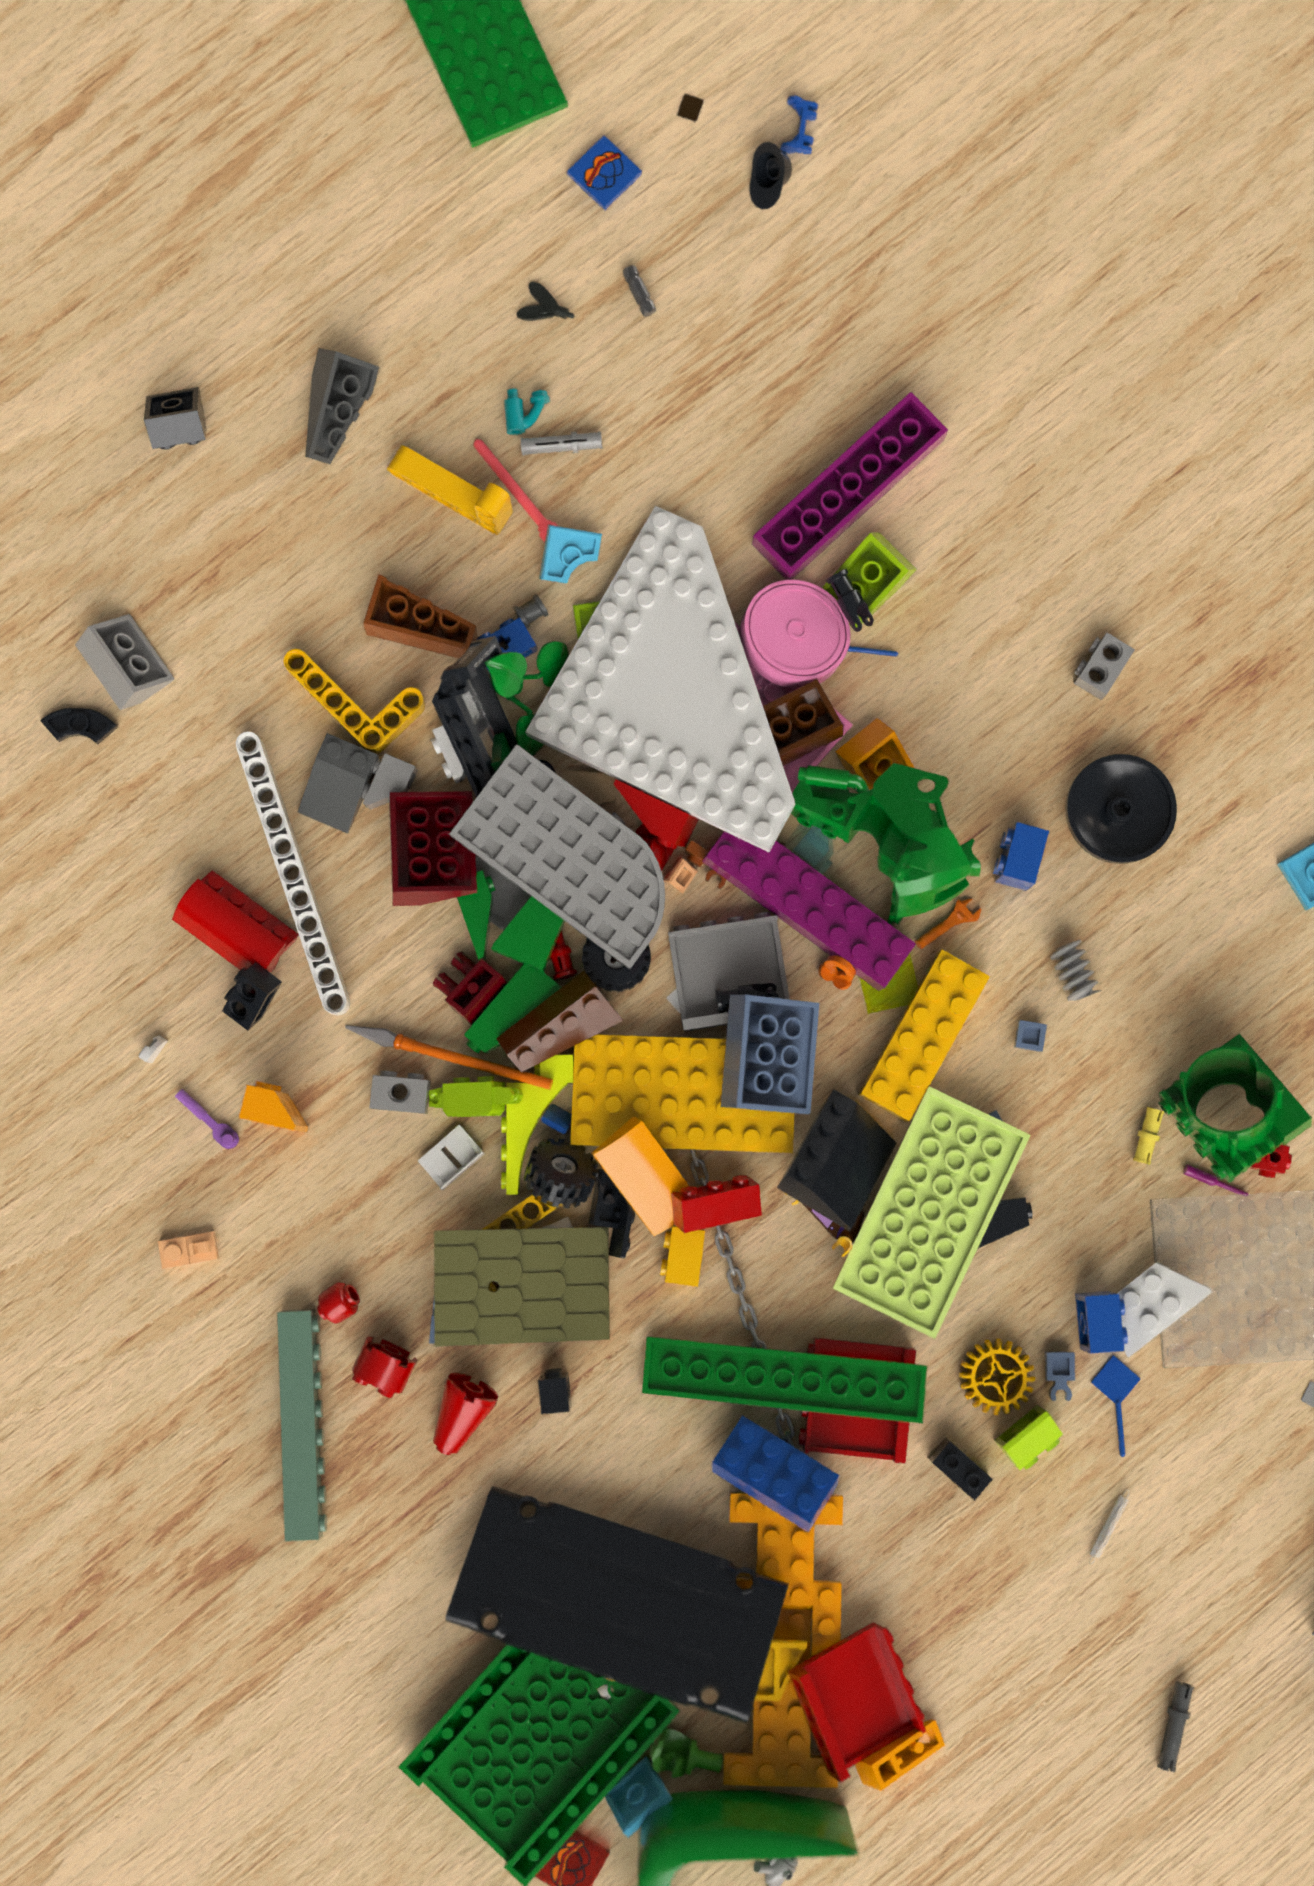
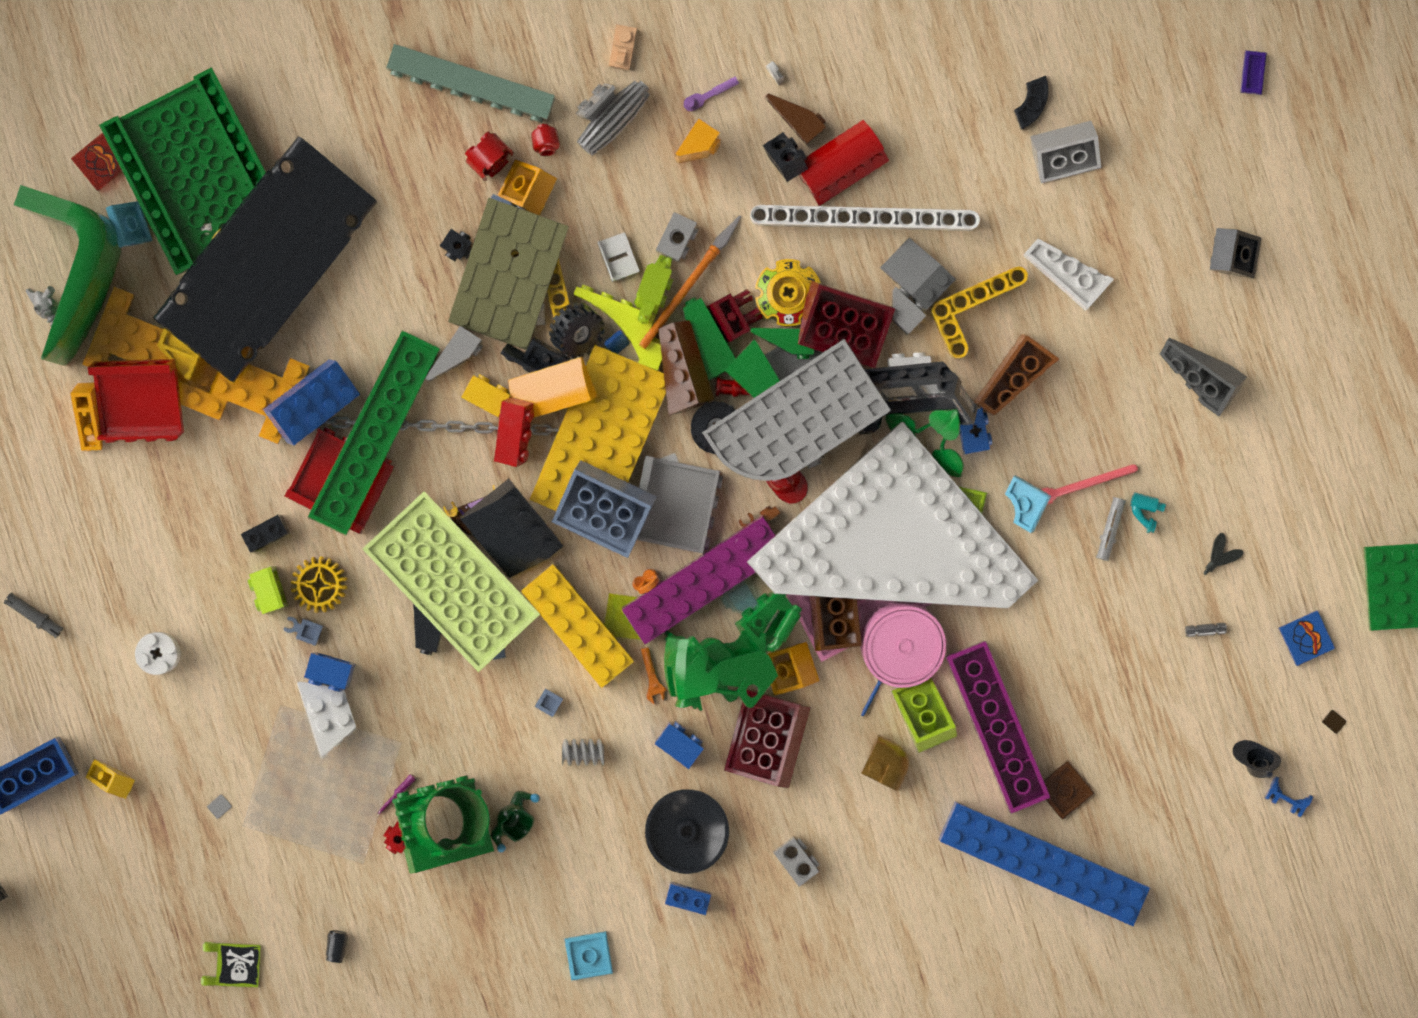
camera: 115 degrees right, 5 degrees up
(199, 996) = (800, 120): none -> reddish brown slope
(274, 599) = (1075, 279): none -> white wing
(276, 1234) = (609, 113): none -> light grey plate
(404, 1303) = (527, 187): none -> light orange slope
(420, 953) = (772, 285): none -> yellow piece
(461, 1411) = (436, 199): red cone -> none
(485, 508) = (1105, 434): yellow beam -> none
(500, 750) = (893, 399): dark green tile -> none
(507, 1373) = (450, 242): none -> black brick
(531, 610) = (993, 460): dark grey bush -> none
(554, 1391) = (425, 269): black brick -> none
(640, 1312) = (459, 349): none -> light grey slope
(661, 819) = (802, 494): red slope -> none
(680, 875) = (759, 496): light nougat slope -> none
(681, 1754) = (145, 264): bright green piece -> none
(723, 997) = (655, 514): black piece -> none
(850, 600) = (912, 694): black piece -> none
(891, 381) = (1066, 790): none -> reddish brown tile
(944, 602) = (887, 763): none -> pearl gold brick
(976, 751) = (767, 740): none -> dark red slope
(990, 375) = (1044, 863): none -> blue brick
(1107, 1524) = (192, 627): white piece -> none
(1116, 1383) = (282, 668): blue piece -> none
(1148, 1135) = (446, 759): light yellow pin -> none
(1173, 1560) = (147, 658): none -> white brick
(1190, 1024) = (514, 820): none -> dark green piece
(1200, 778) = (688, 898): none -> blue brick

